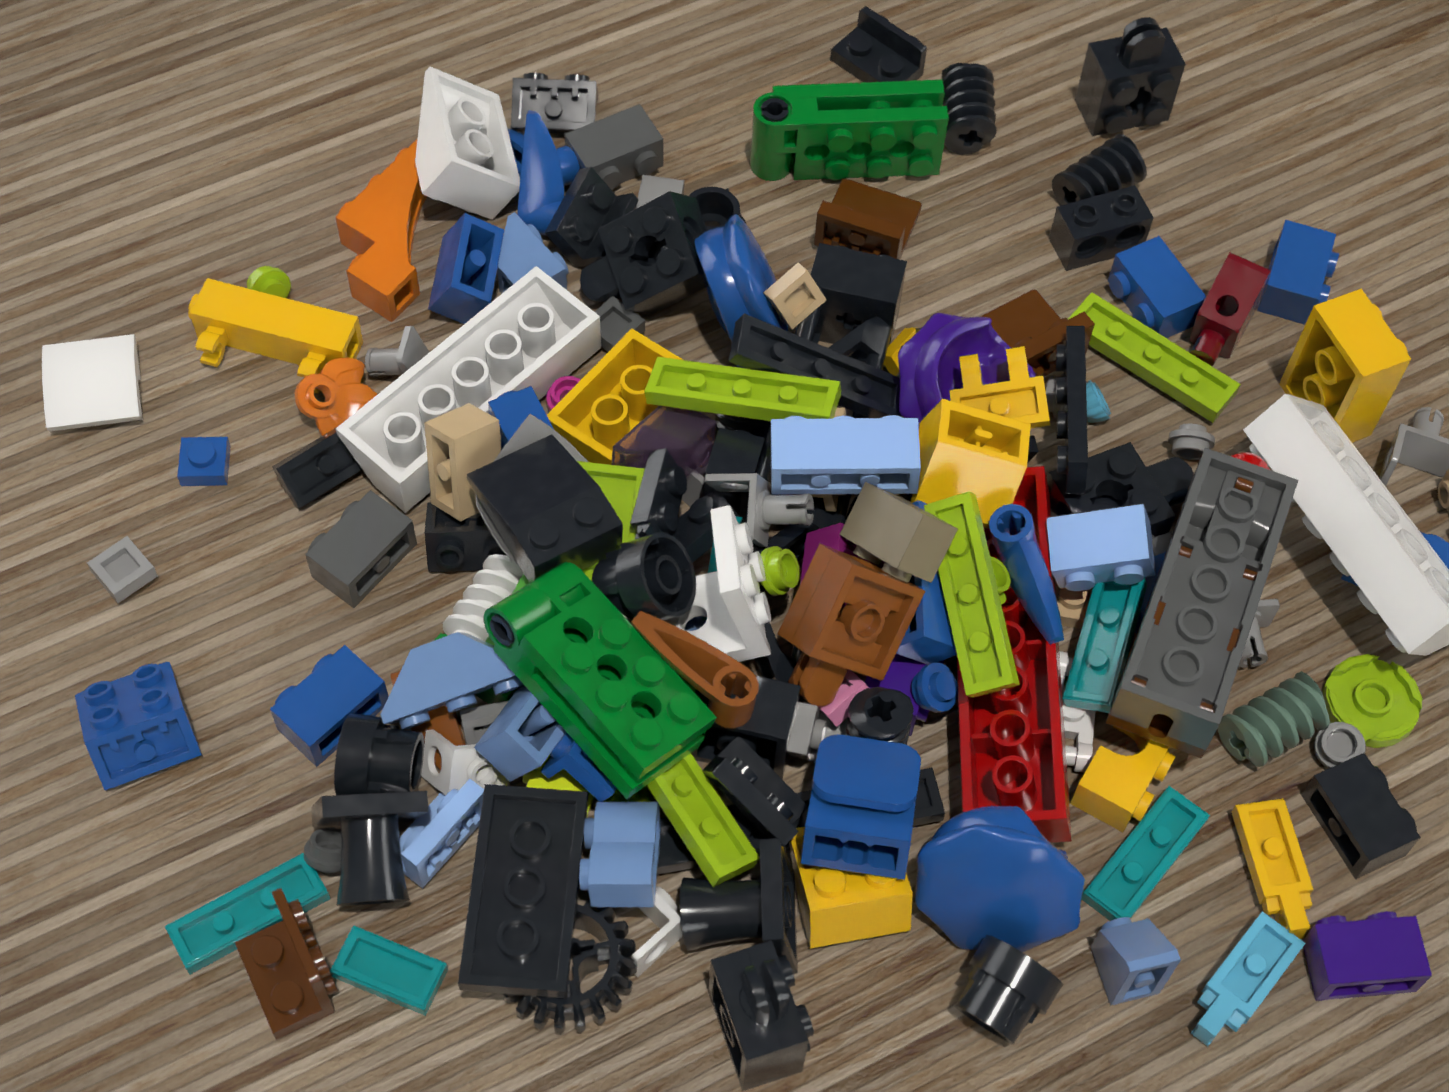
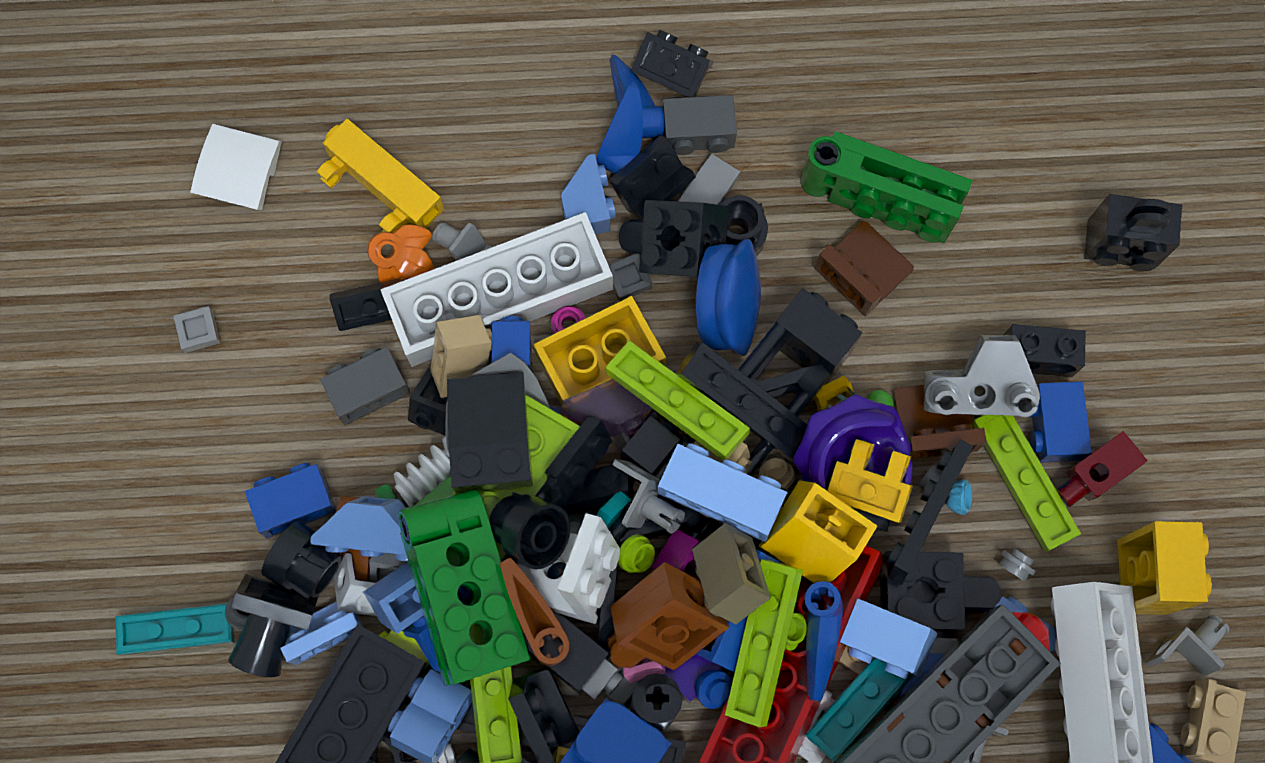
camera: 25 degrees right, 15 degrees up
(136, 725) = (156, 454): blue bracket -> none
(204, 461) = (289, 263): blue plate -> none
(270, 281) = (392, 137): lime plate -> none
(288, 970) = (180, 687): reddish brown bracket -> none
(381, 231) = (503, 112): orange arch -> none
(389, 970) = (248, 715): teal tile -> none
(464, 146) = (582, 79): white slope -> none
(466, 269) = (538, 186): blue brick -> none
(795, 296) = (757, 331): tan plate -> none
(879, 51) = (948, 119): black bracket -> none
(969, 107) = (992, 197): black piece -> none
(1065, 249) = (996, 365): none -> light grey piece
(1104, 170) = (1067, 302): black piece -> none
(1298, 272) = (1182, 455): blue brick -> none

